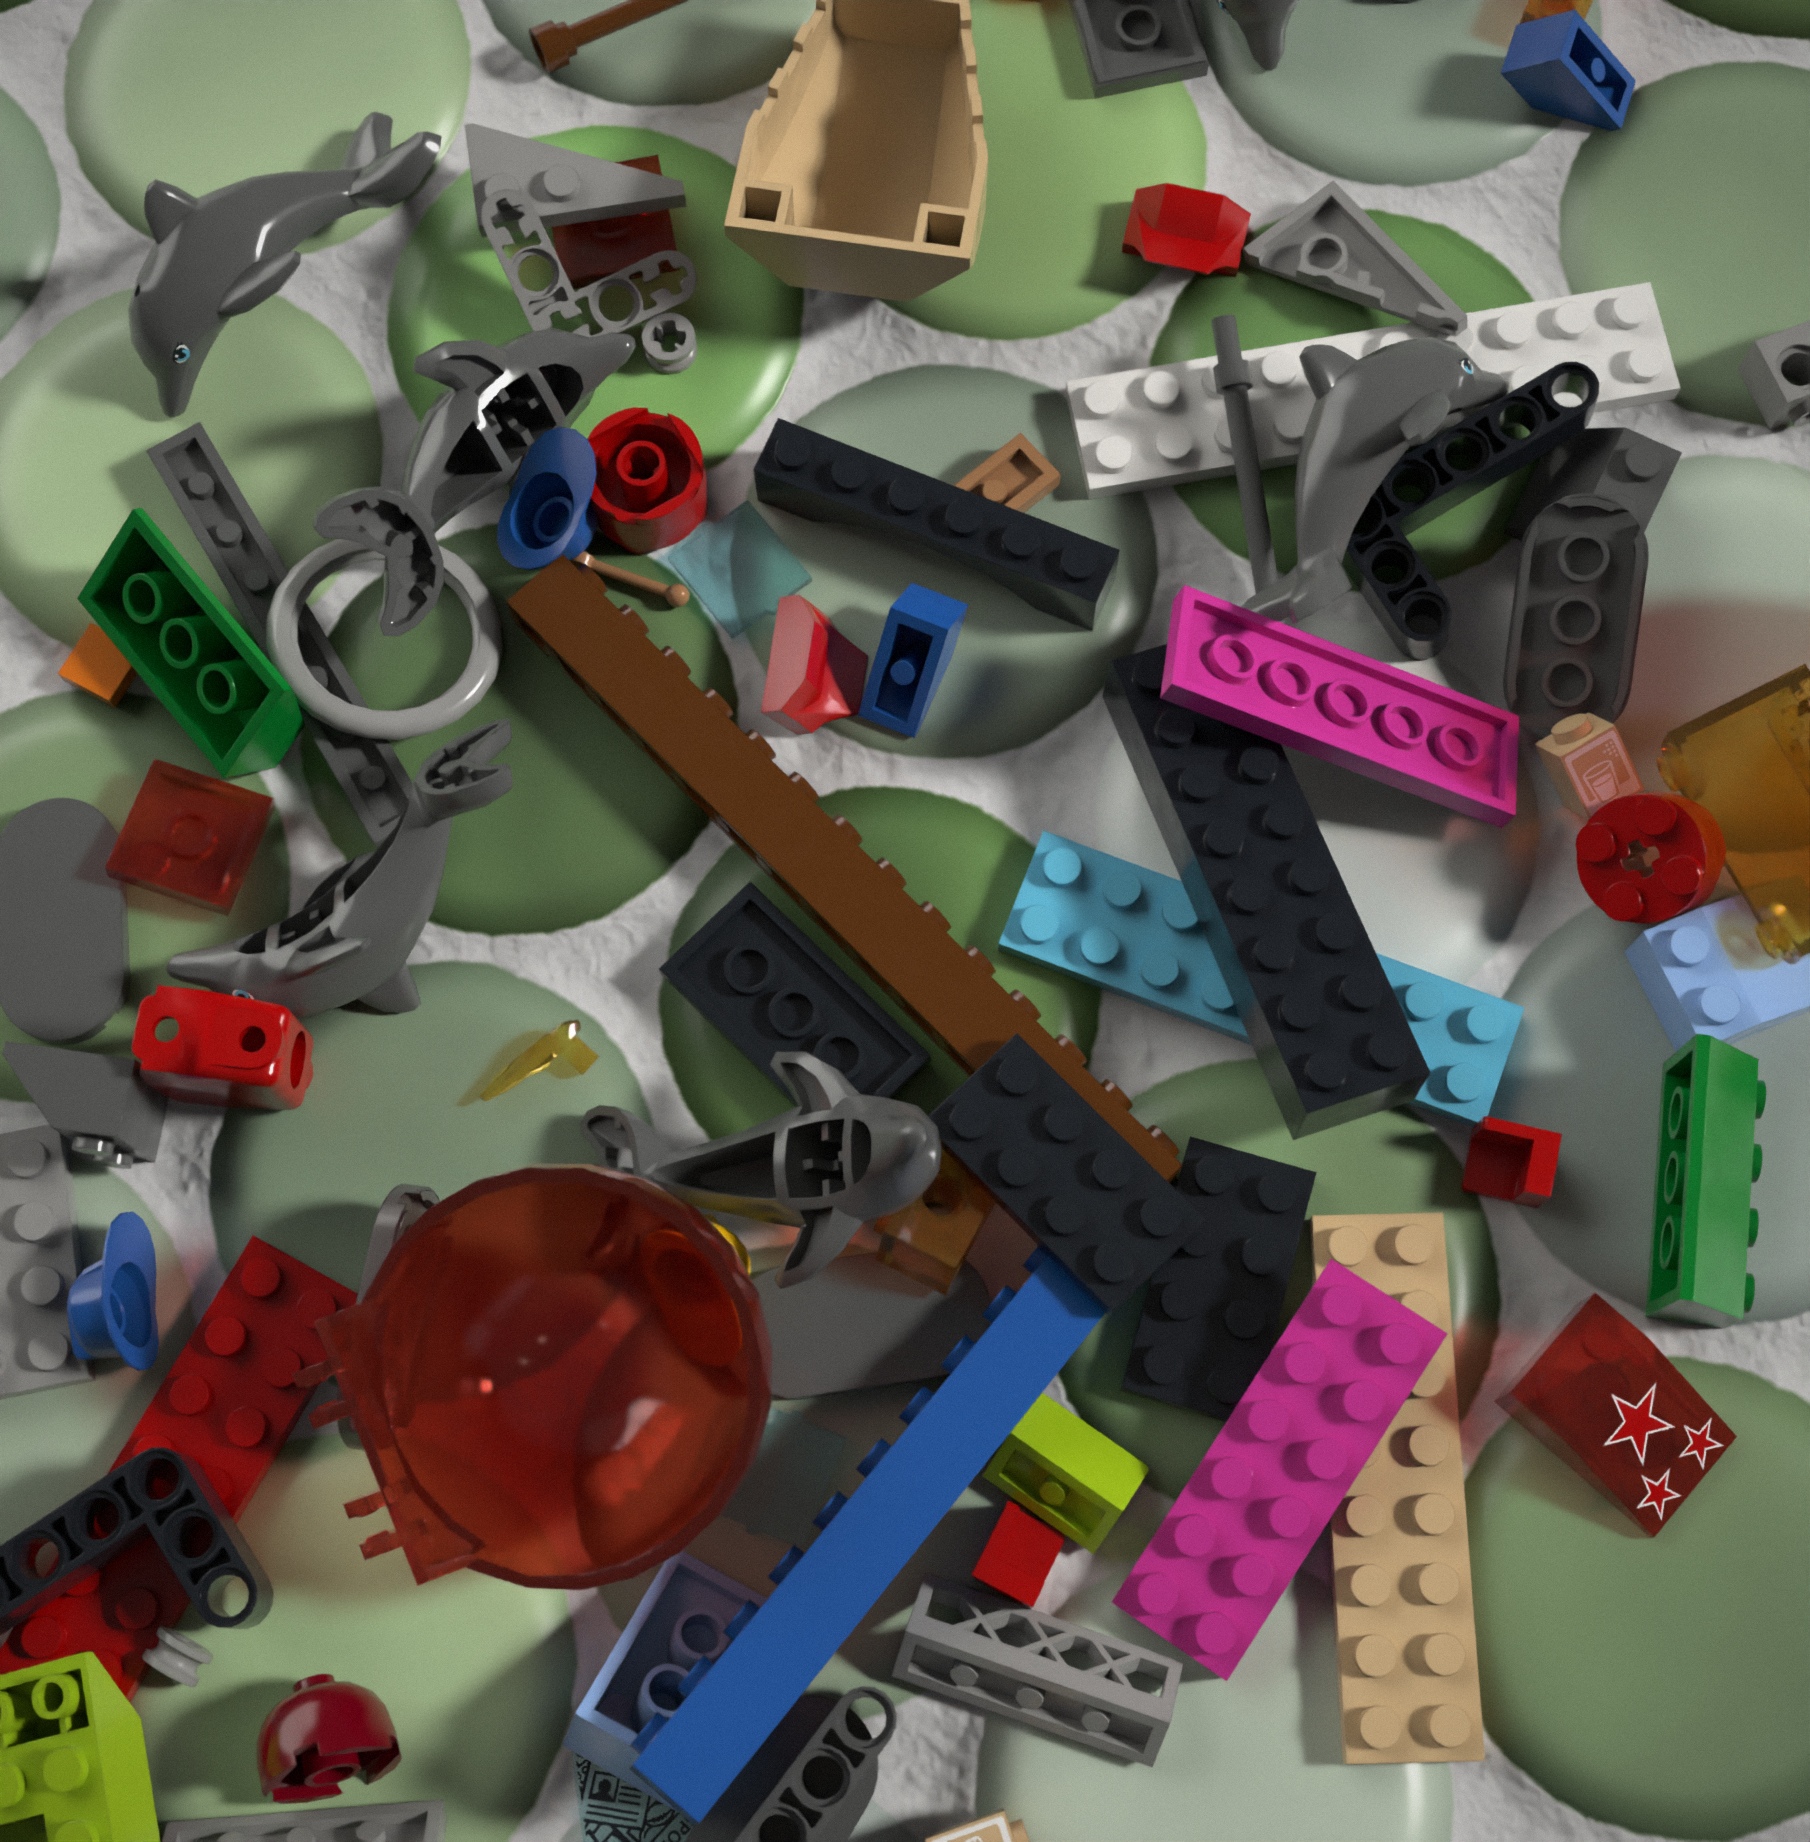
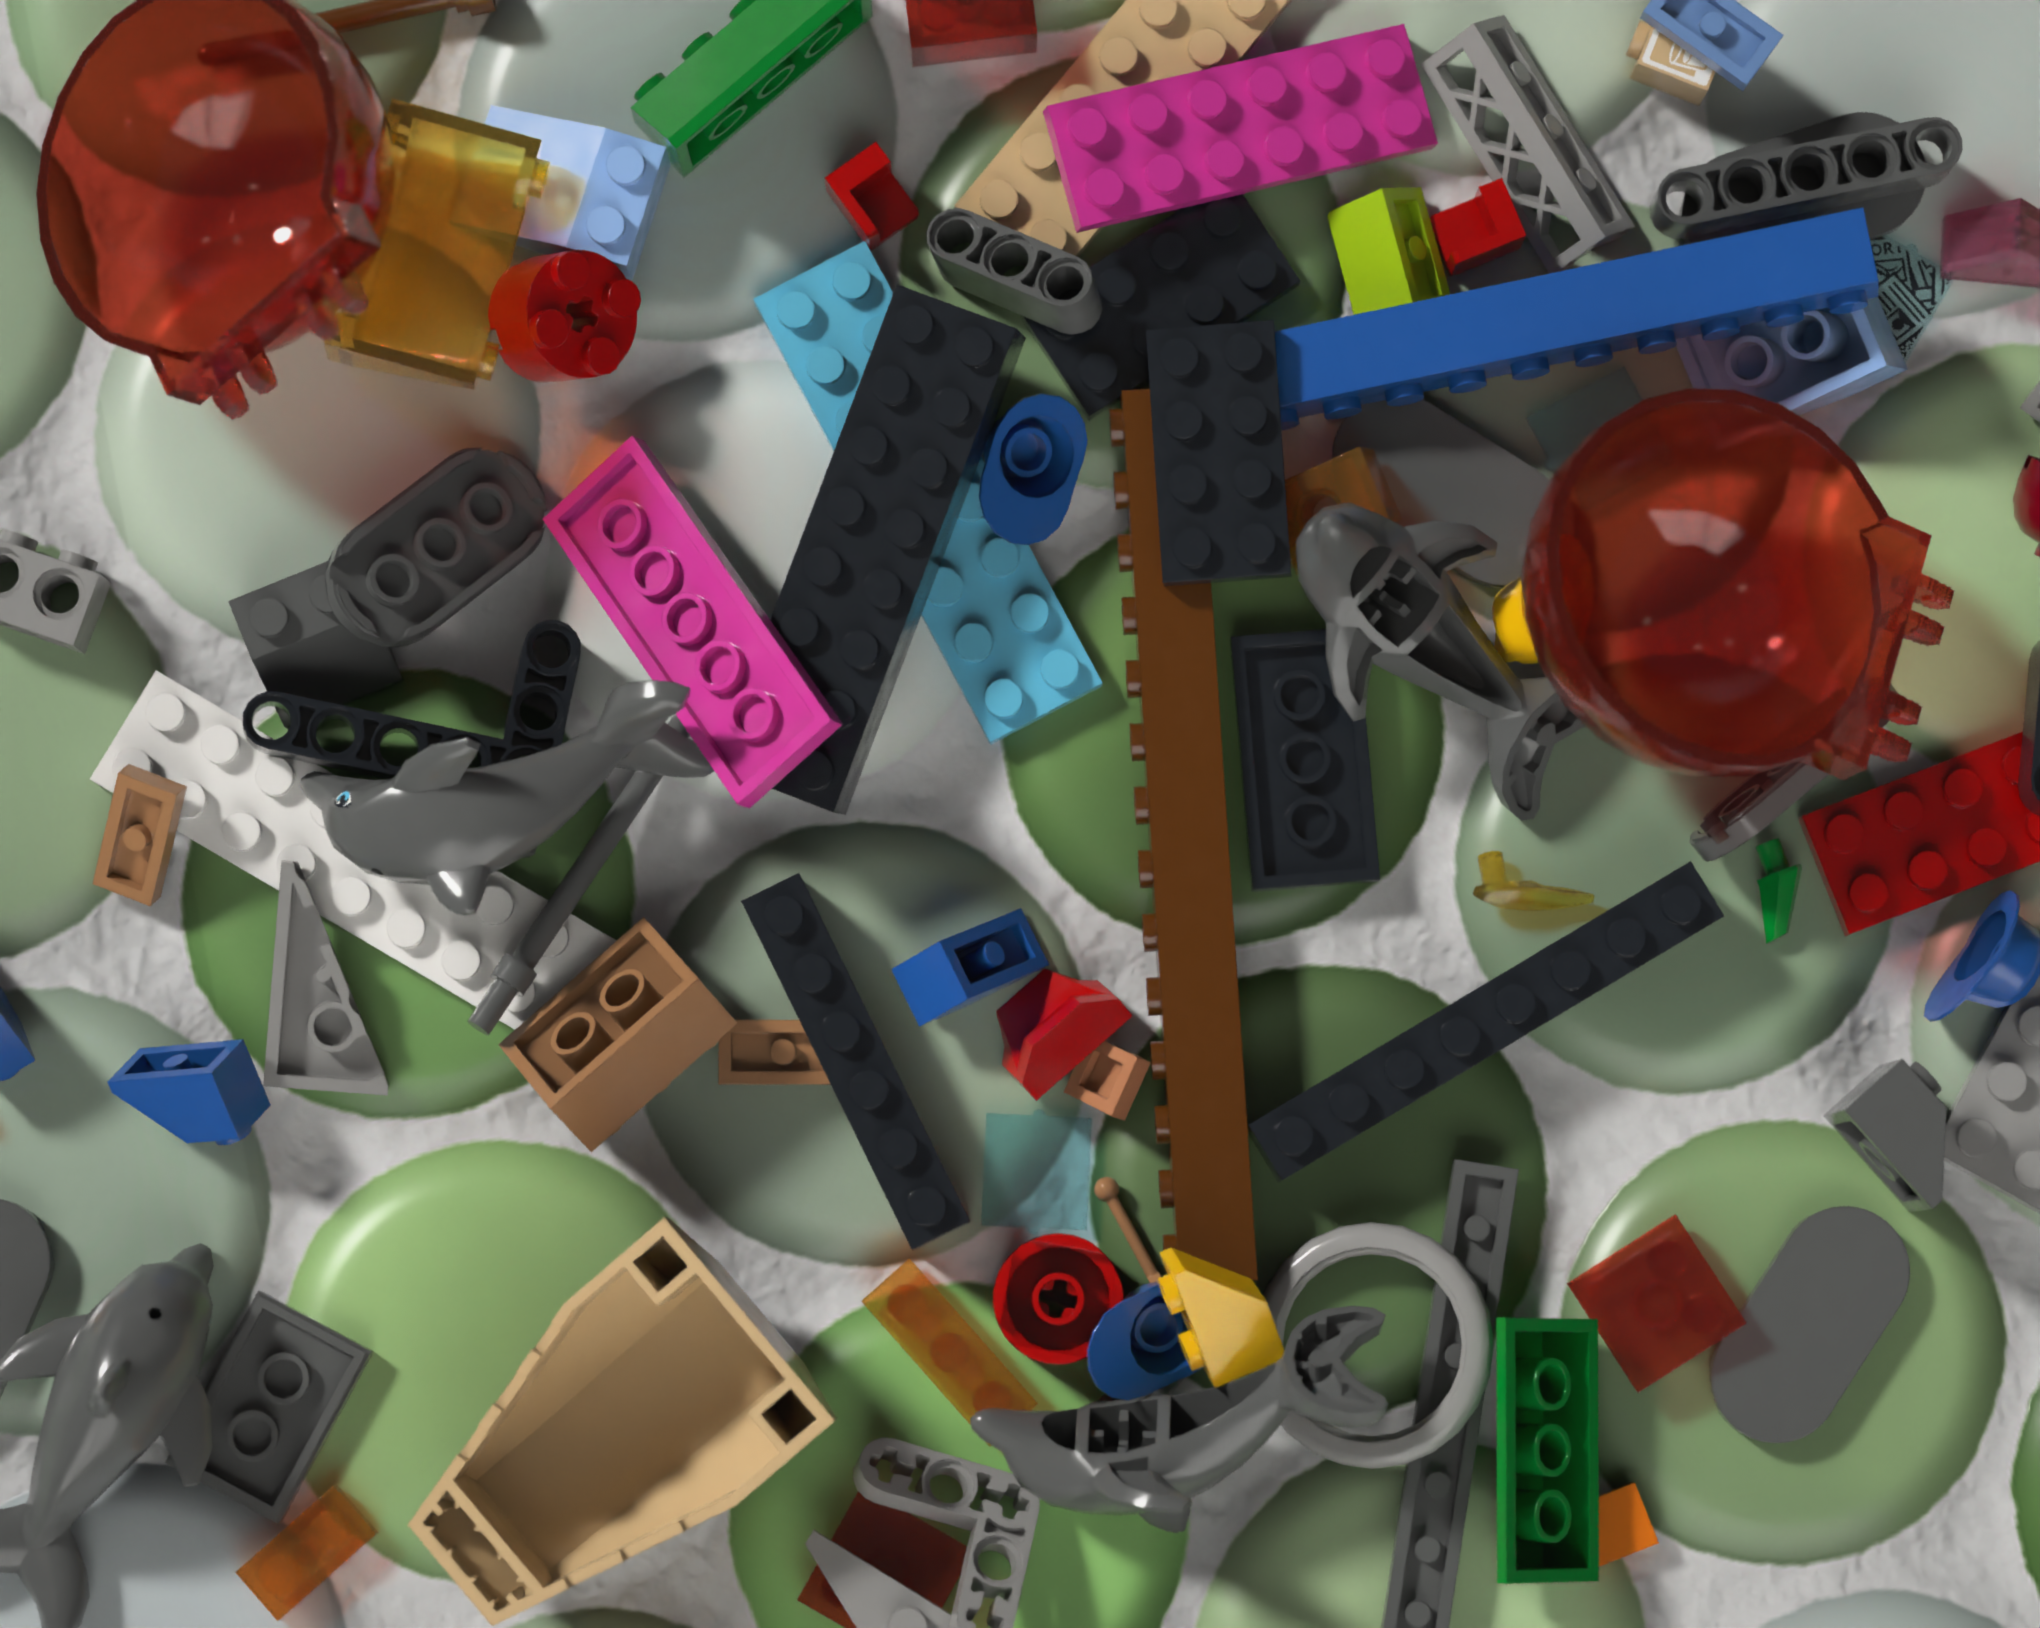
camera: 145 degrees left, 10 degrees up
(225, 1050) = (1761, 1072): red piece -> none
(337, 1223) = (1777, 889): none -> green bar
(369, 911) = (1593, 1099): dark grey animal -> none
(487, 933) = (1484, 1021): none -> black brick
(509, 545) = (1224, 1317): none -> yellow slope
(669, 324) = (947, 1421): light grey bush -> none
(698, 394) = (944, 1344): none -> clear orange plate
(739, 661) = (1108, 1079): none -> nougat plate
(1121, 392) = (617, 1034): none -> medium nougat slope
(1186, 229) = (424, 1149): red slope -> none
(1195, 1046) = (1032, 468): none -> blue piece
(1376, 138) = (195, 1089): none -> blue slope
(1377, 1185) = (1000, 248): none -> dark grey beam
(1580, 265) = (139, 835): none -> medium nougat plate
(1588, 763) = (536, 427): tan brick -> none

